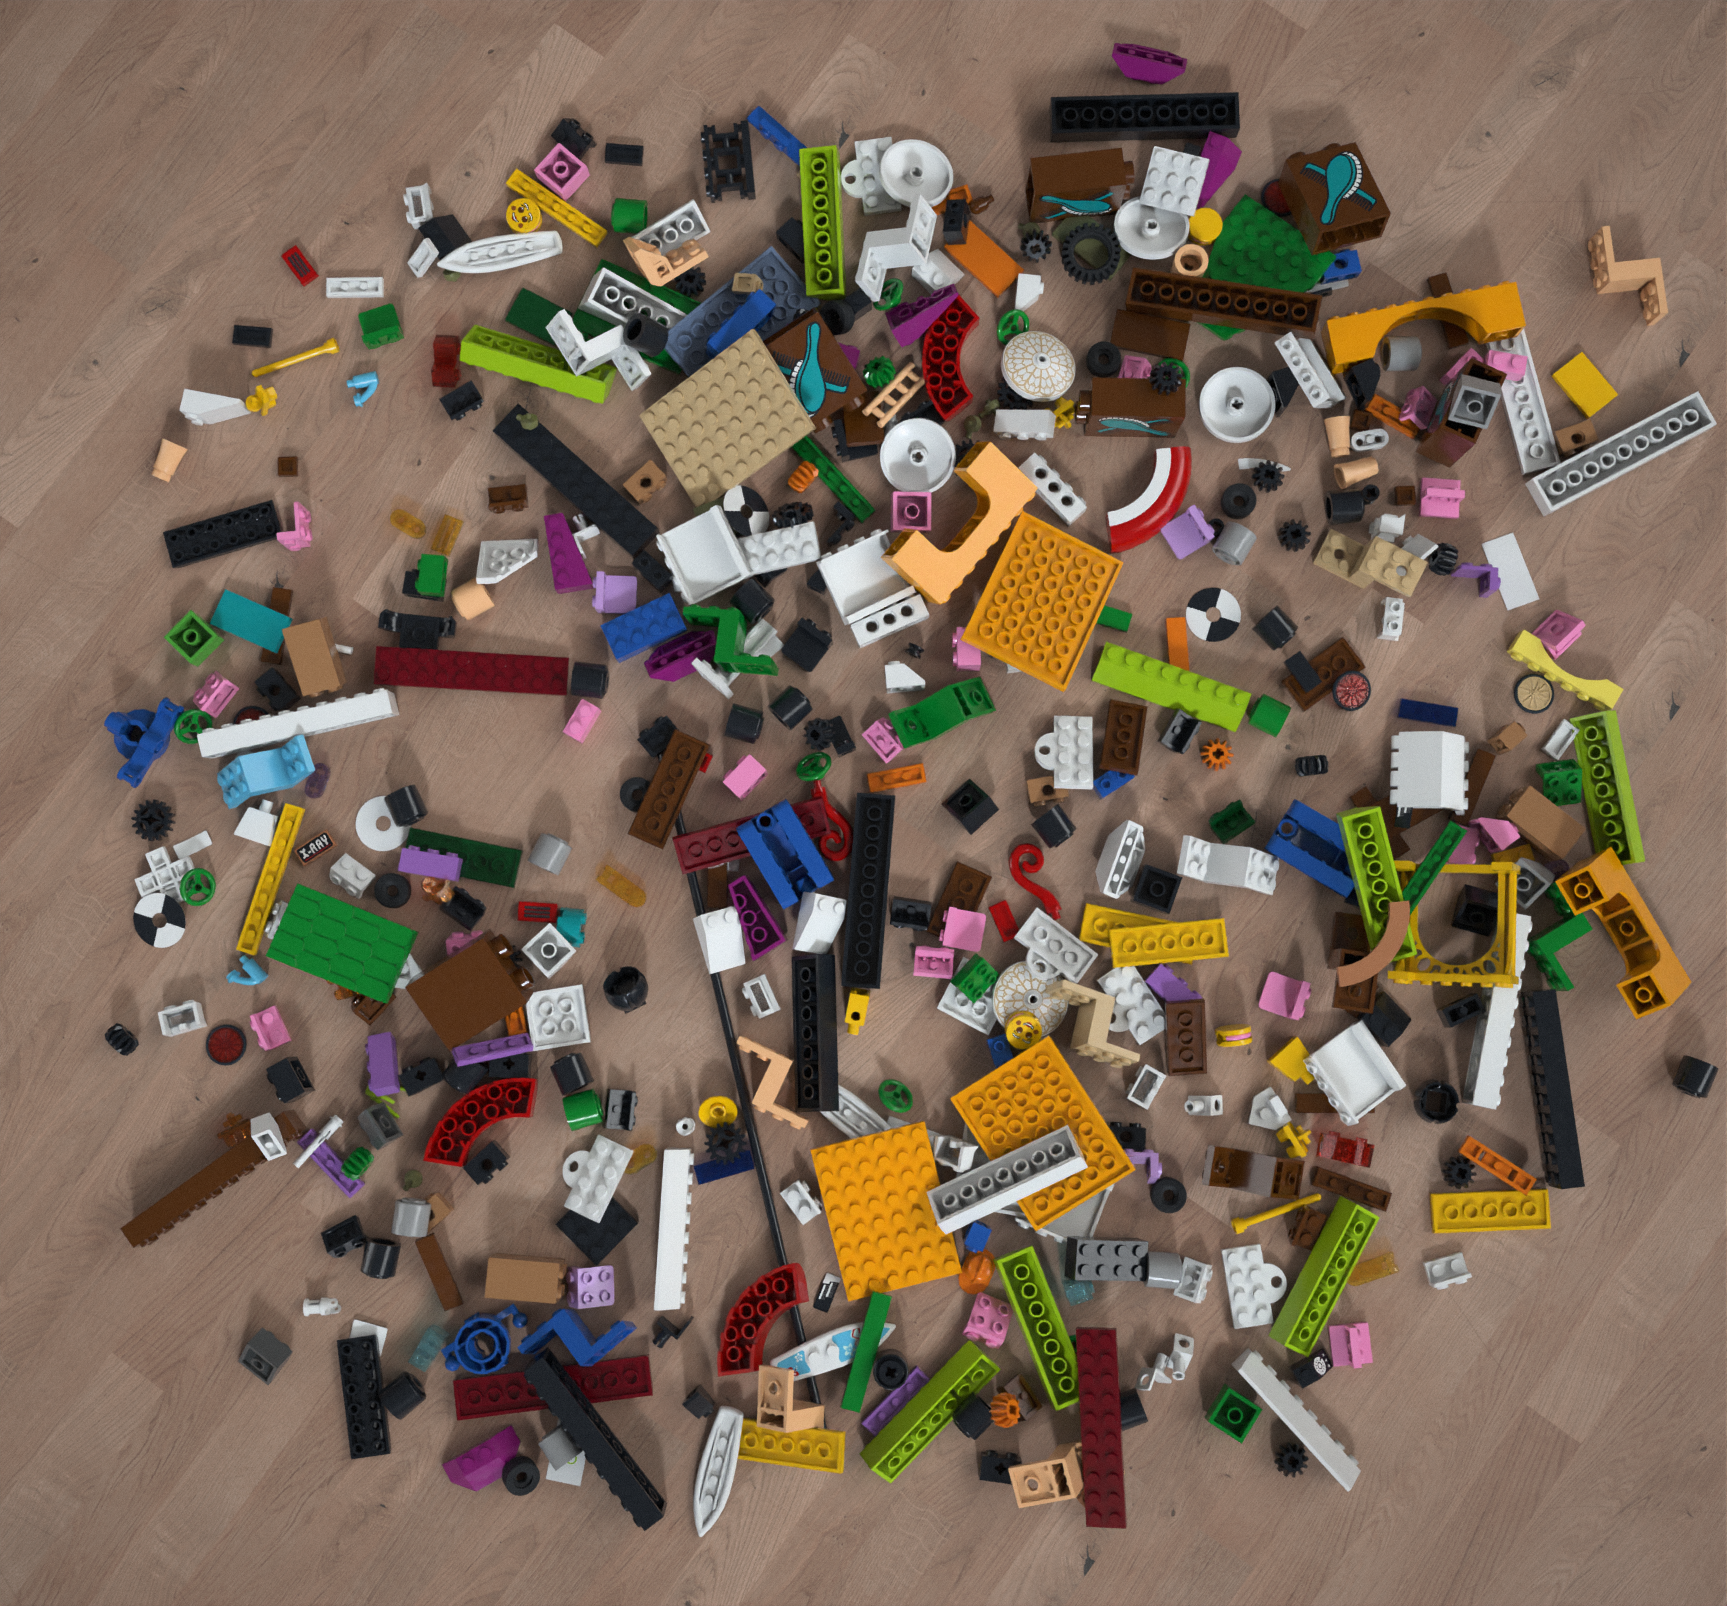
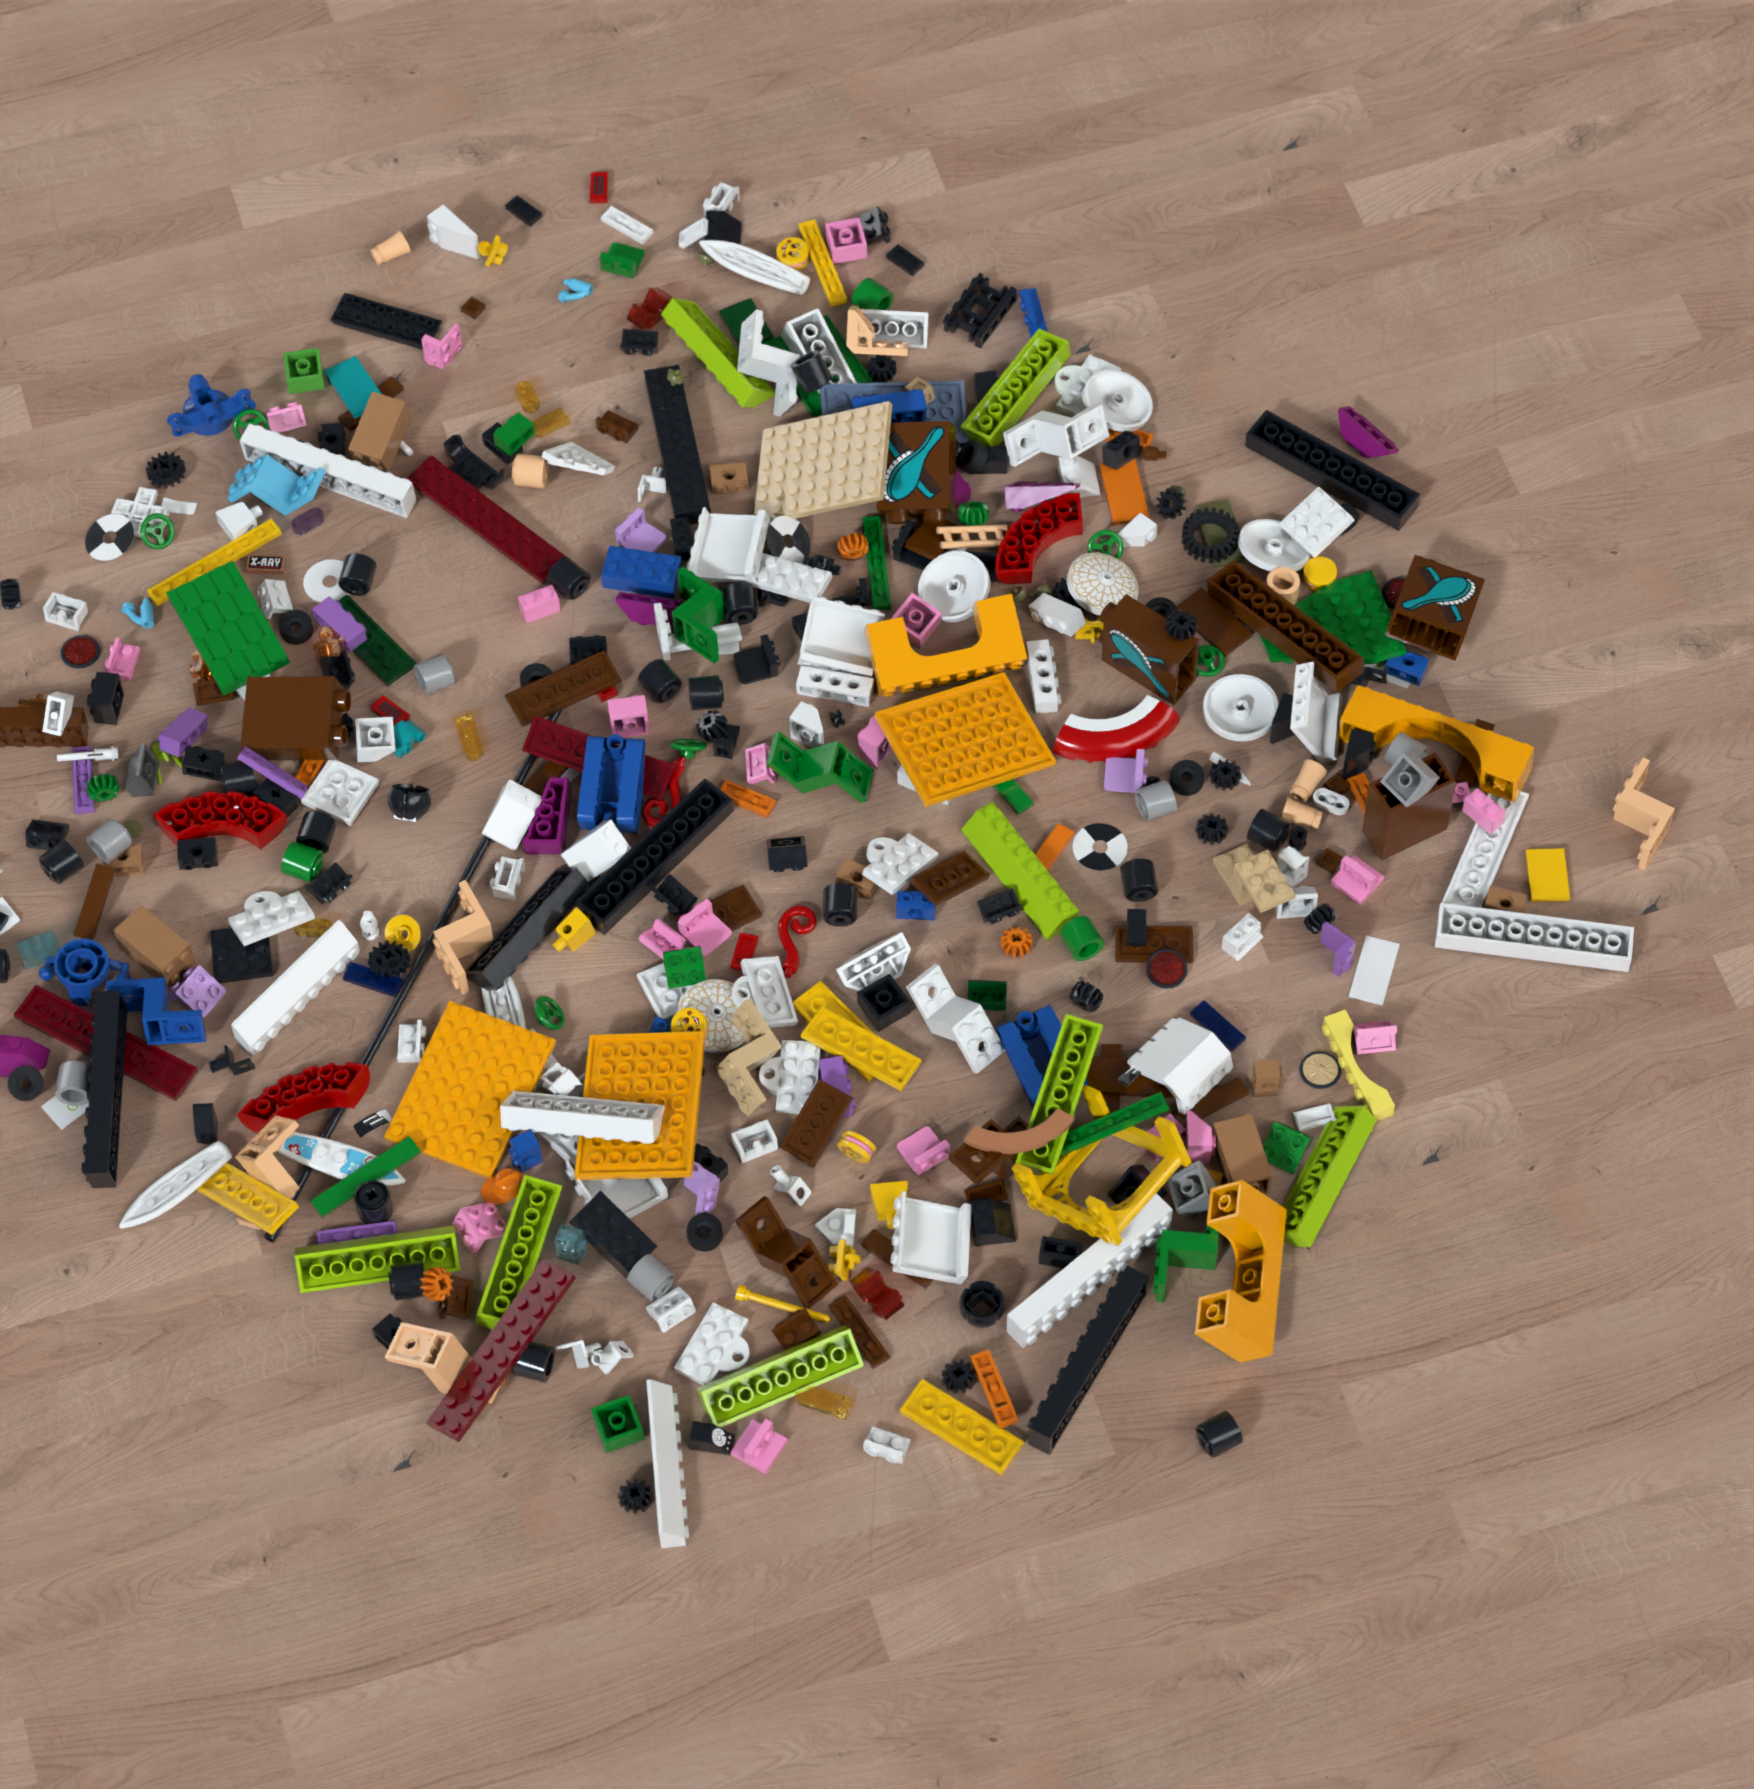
camera: 35 degrees right, 25 degrees down
(330, 346) = (574, 250): yellow piece -> none
(567, 563) = (622, 491): magenta wedge -> none
(891, 296) = (1026, 469): green piece -> none
(1077, 185) = (1232, 474): reddish brown brick -> none
(1223, 161) = (1364, 536): magenta wedge -> none

